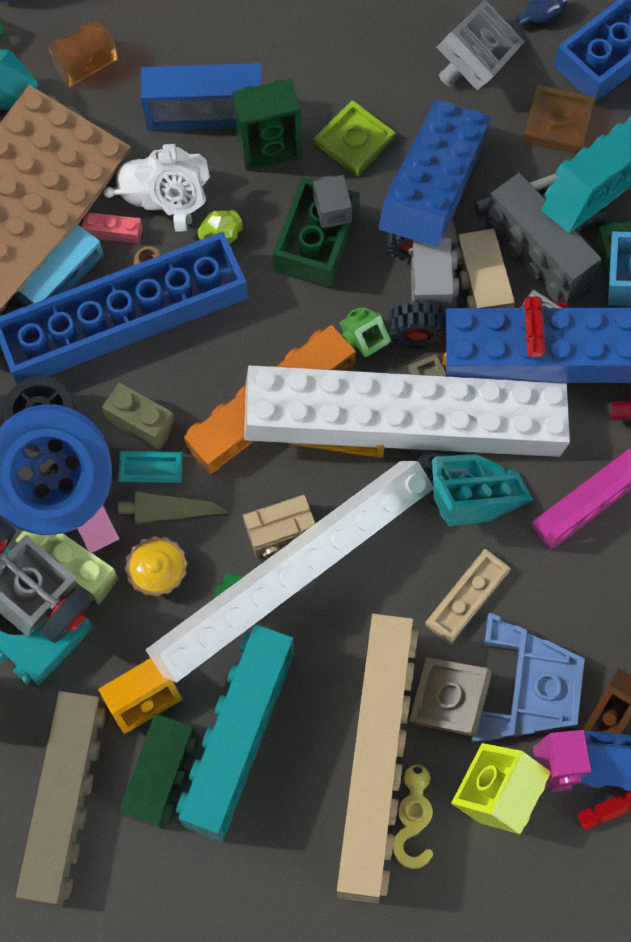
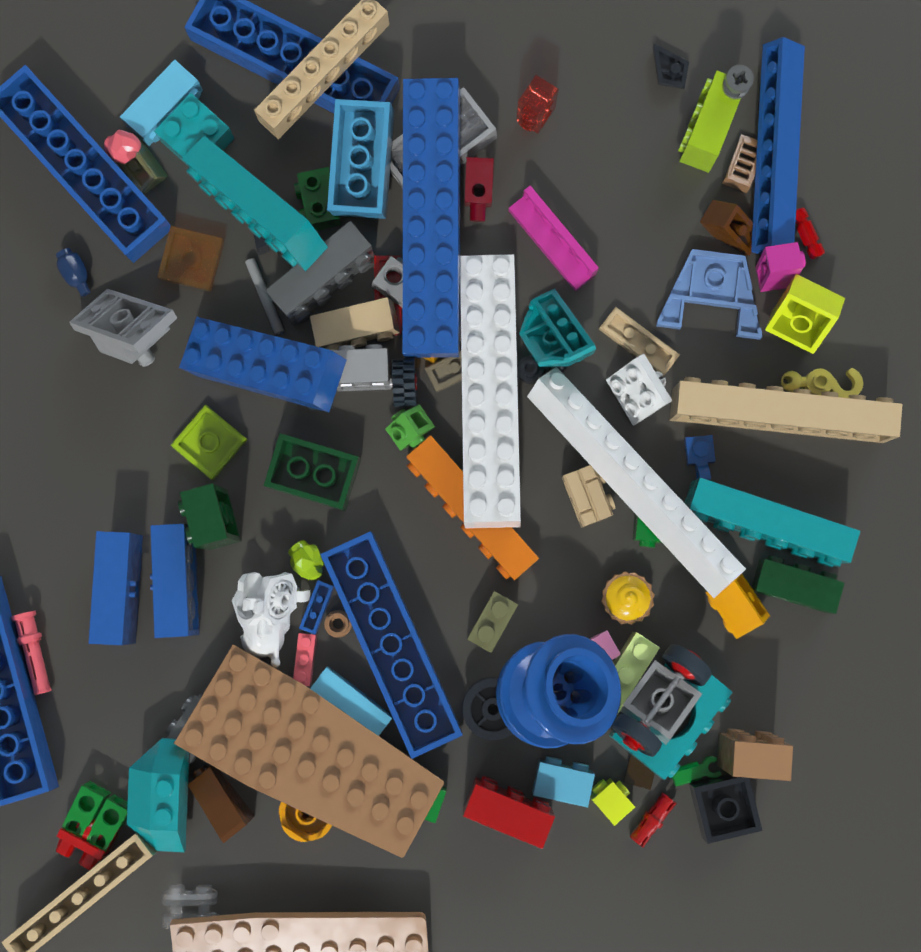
camera: 90 degrees left, 15 degrees up
(60, 800) = (822, 663): dark tan brick -> none
(83, 52) = (120, 699): clear orange brick -> none
(150, 466) = (534, 610): teal tile -> none
(157, 507) = (570, 597): olive bar -> none
(163, 236) = (317, 607): none -> blue piece
(196, 38) = (115, 588): none -> blue brick
(329, 662) = (700, 453): none -> blue plate
(332, 201) = (293, 455): dark grey brick -> none
(407, 586) = (643, 387): none -> white plate
(450, 696) = (728, 353): dark tan plate -> none
(534, 327) = (426, 276): red axle -> none

